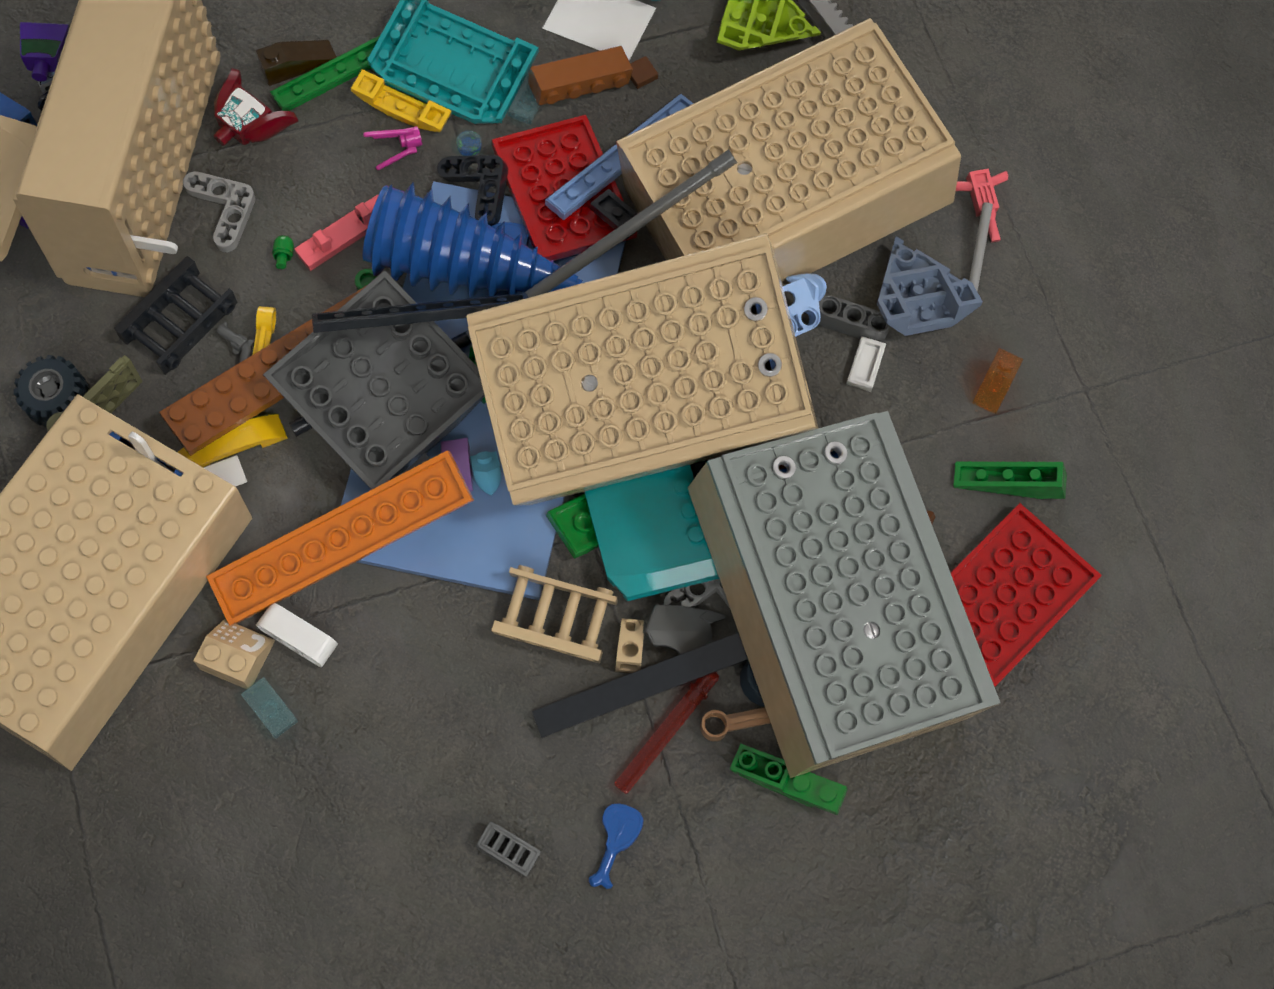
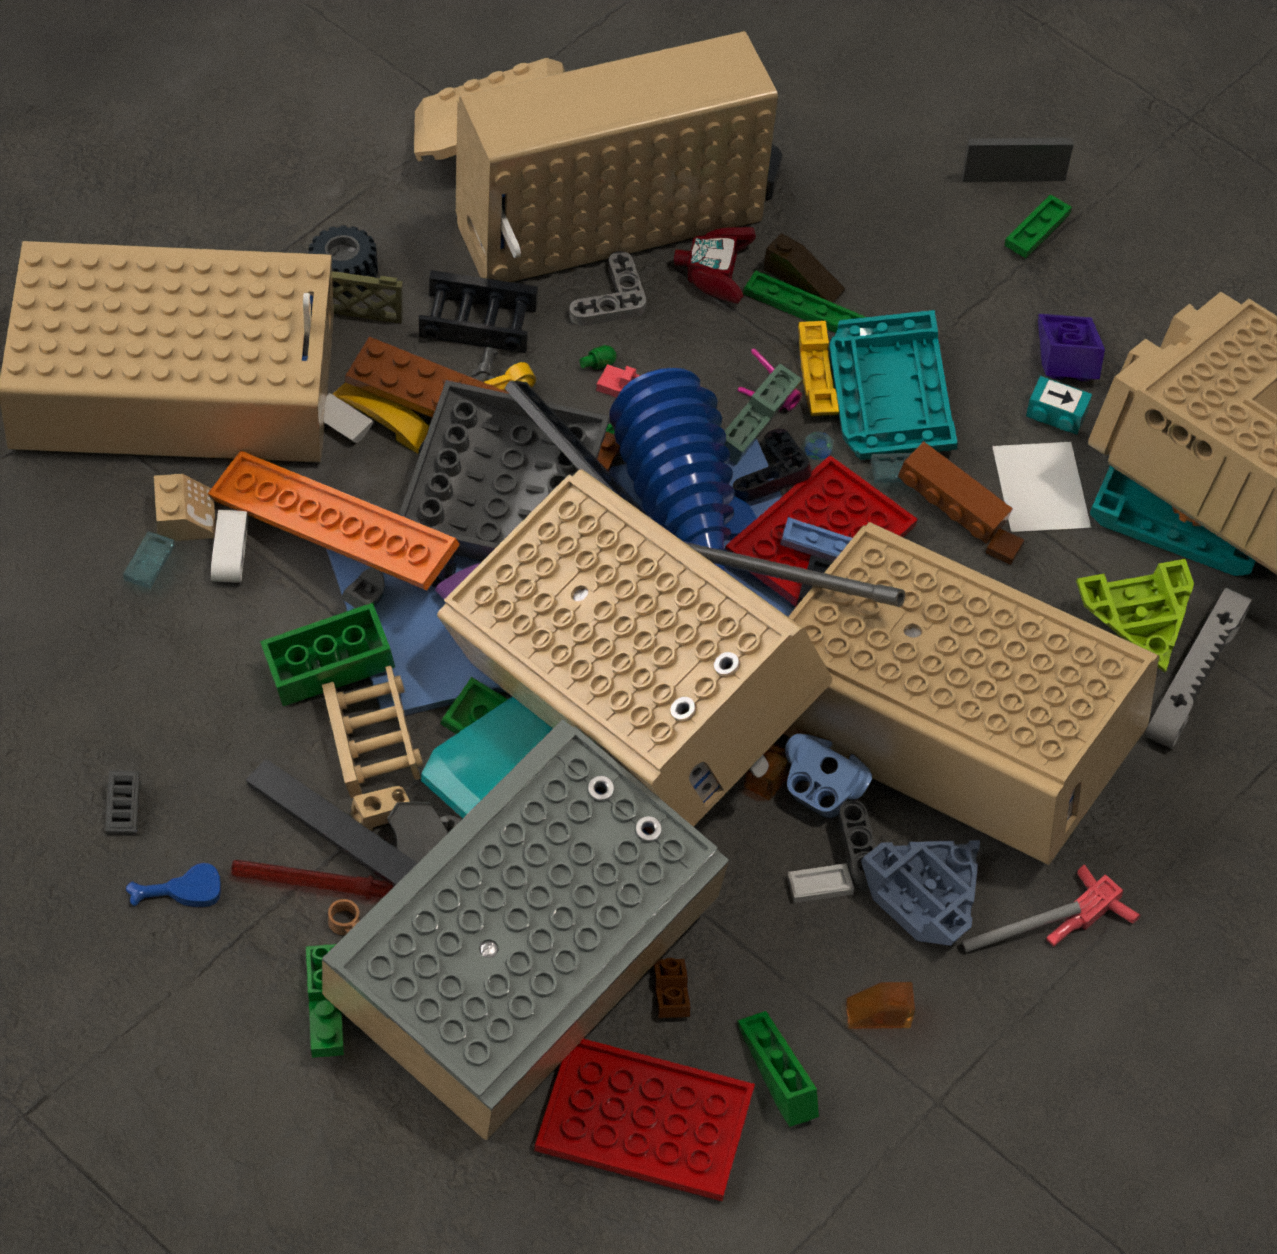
camera: 60 degrees right, 15 degrees down
(416, 551) = (365, 589): none -> dark grey plate
(420, 160) = (760, 411): none -> sand green slope
(464, 610) = (327, 651): none -> green brick

